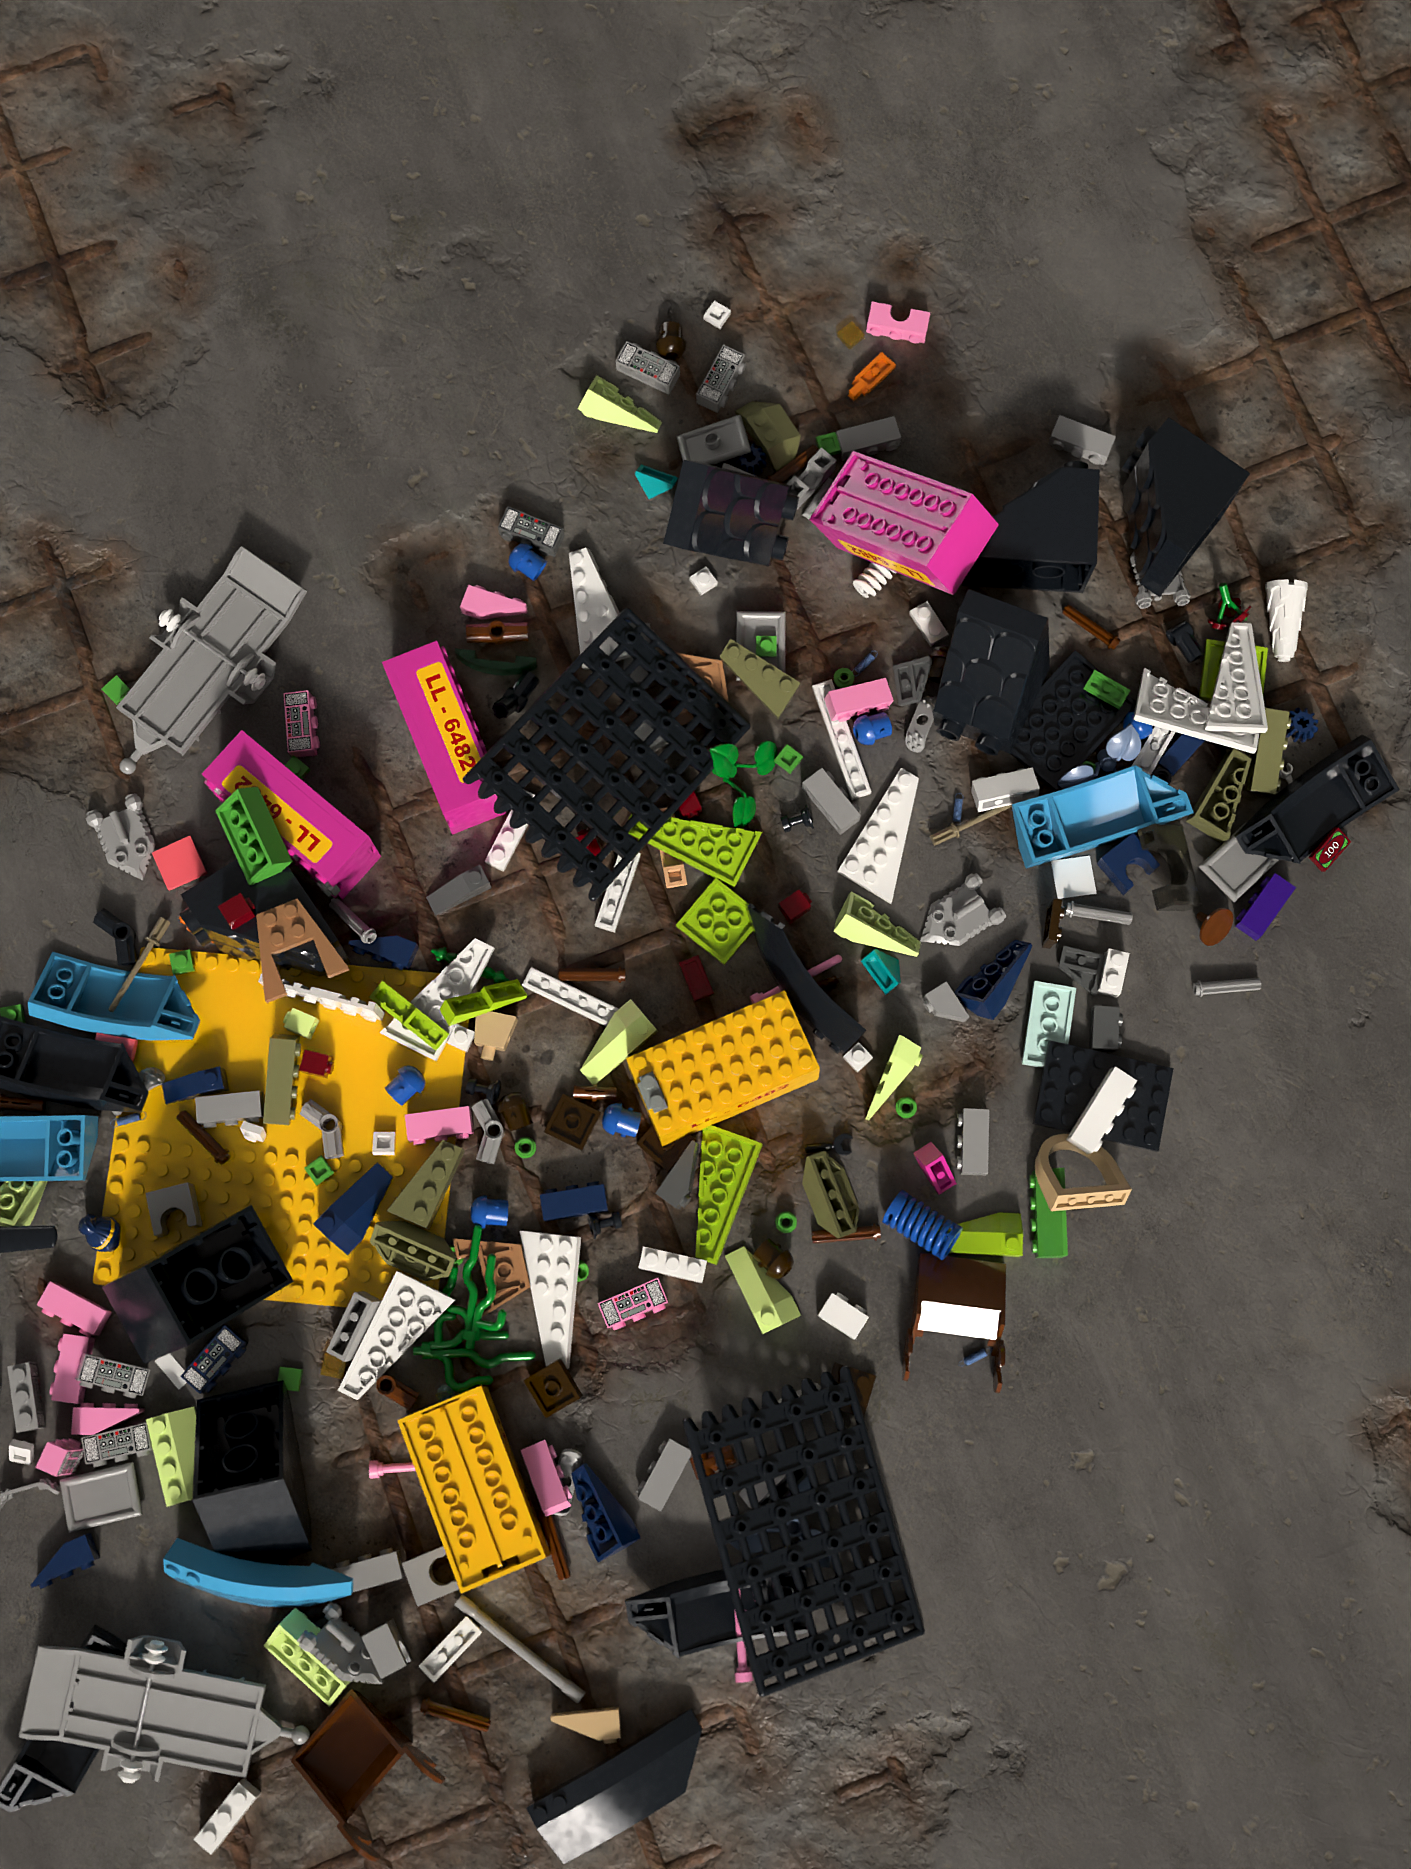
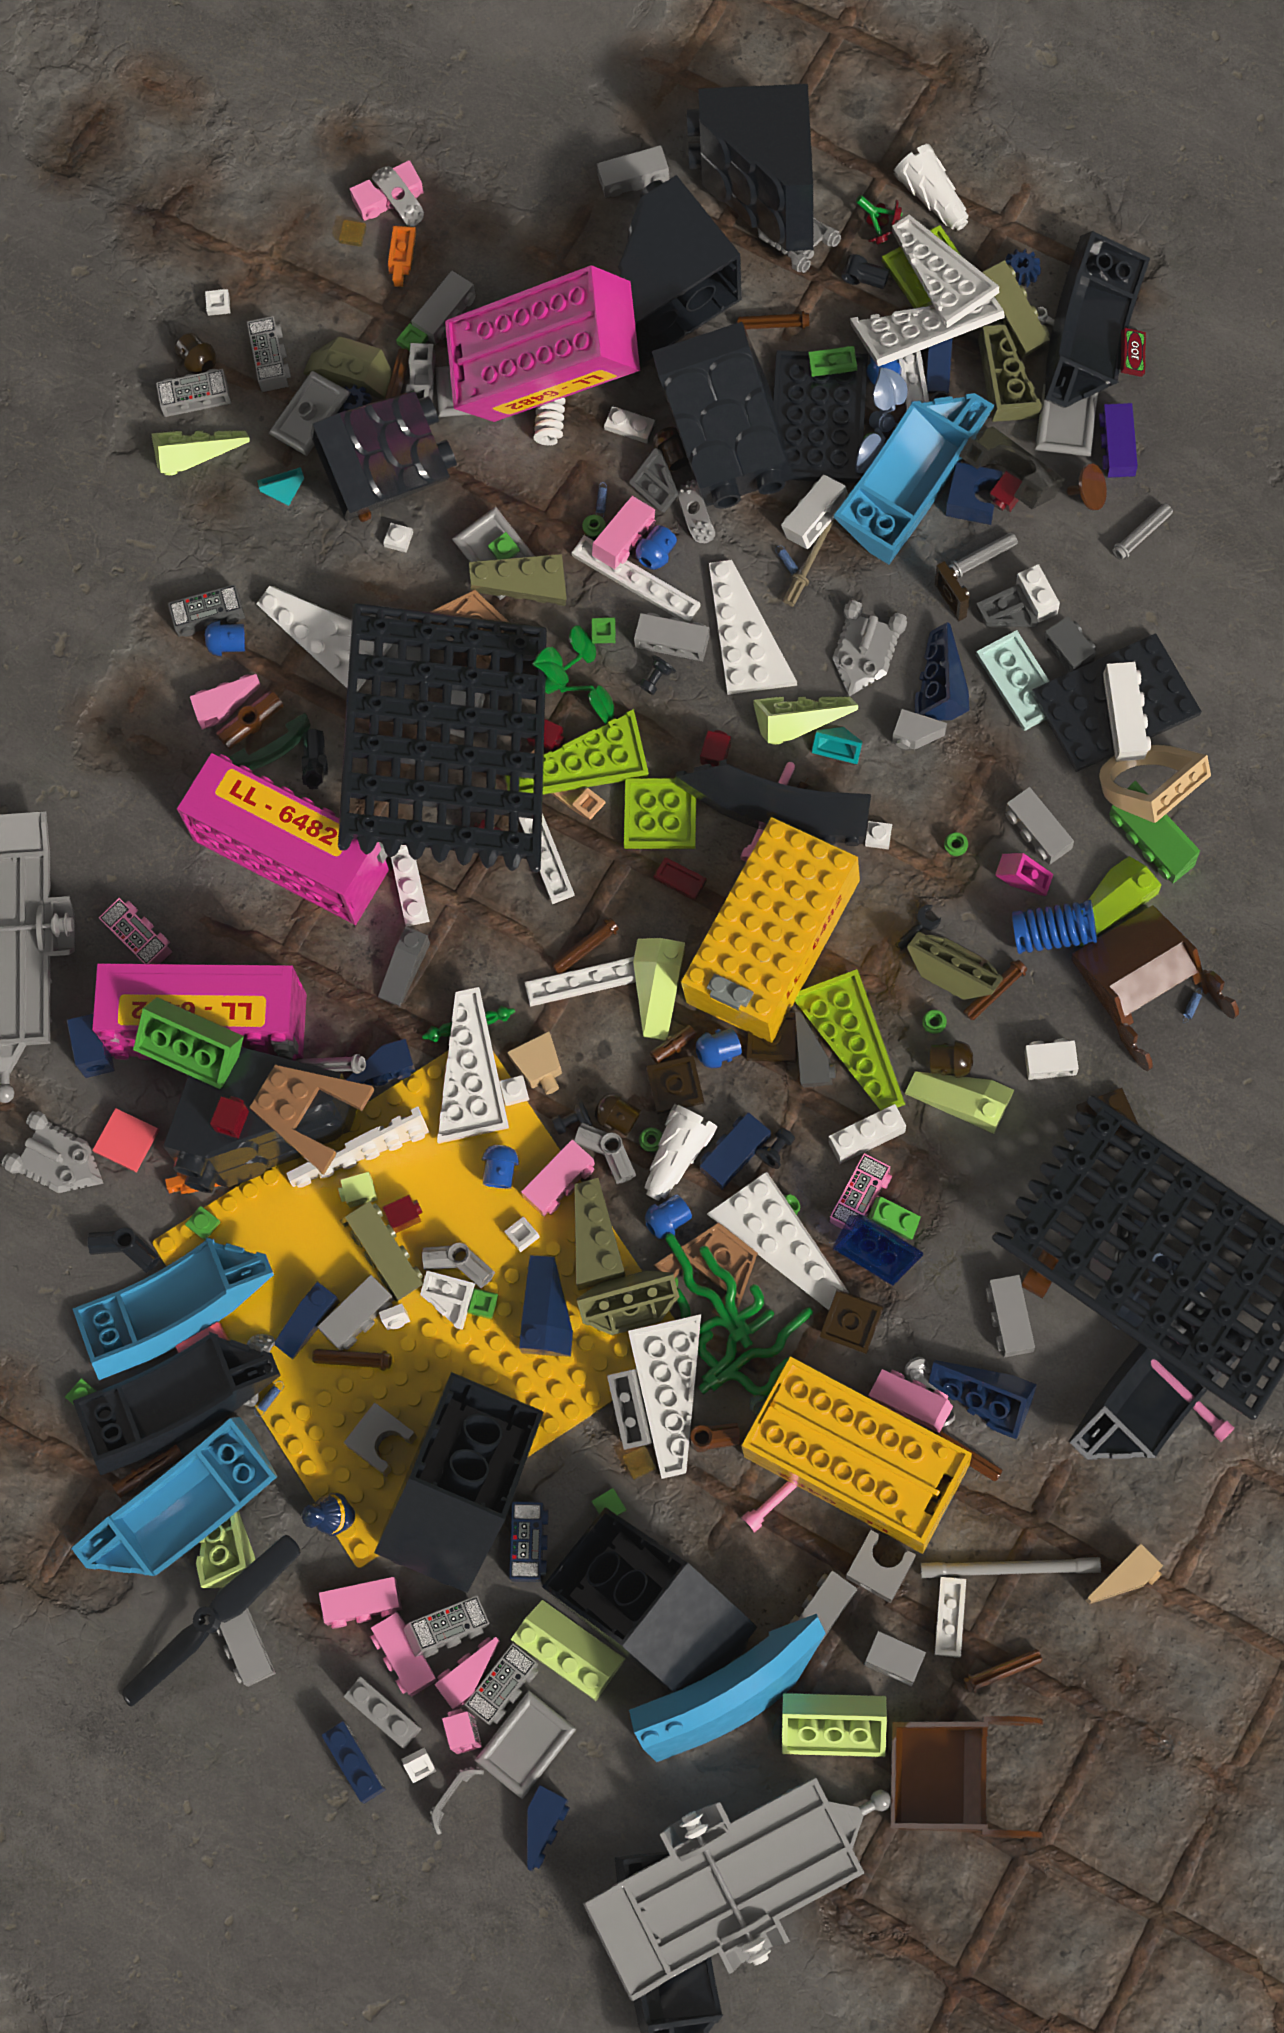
camera: 30 degrees left, 5 degrees down
(154, 939) = (159, 1224): dark tan piece -> none
(171, 1369) = (495, 1585): white sticker -> none
(194, 781) = (88, 1050): none -> dark blue piece
(227, 1816) = (875, 1922): white brick -> none
(300, 1146) = (448, 1296): none -> white wing
(340, 1648) = (855, 1692): light grey shield -> none
(409, 1015) = (452, 1104): lime slope -> none
(488, 999) = (511, 1036): lime slope -> none
(535, 1170) = (678, 1147): none -> white cone
(609, 1352) = (876, 1248): none -> clear blue slope
(618, 1789) = (1198, 1613): black slope -> none
(642, 1339) = (894, 1217): none -> bright green plate
(900, 1064) = (919, 807): yellowish green wedge -> none
(902, 345) = (407, 207): none -> light grey piece
(1073, 877) = (935, 541): white sticker -> none
(1151, 880) = (1004, 491): none -> dark red brick

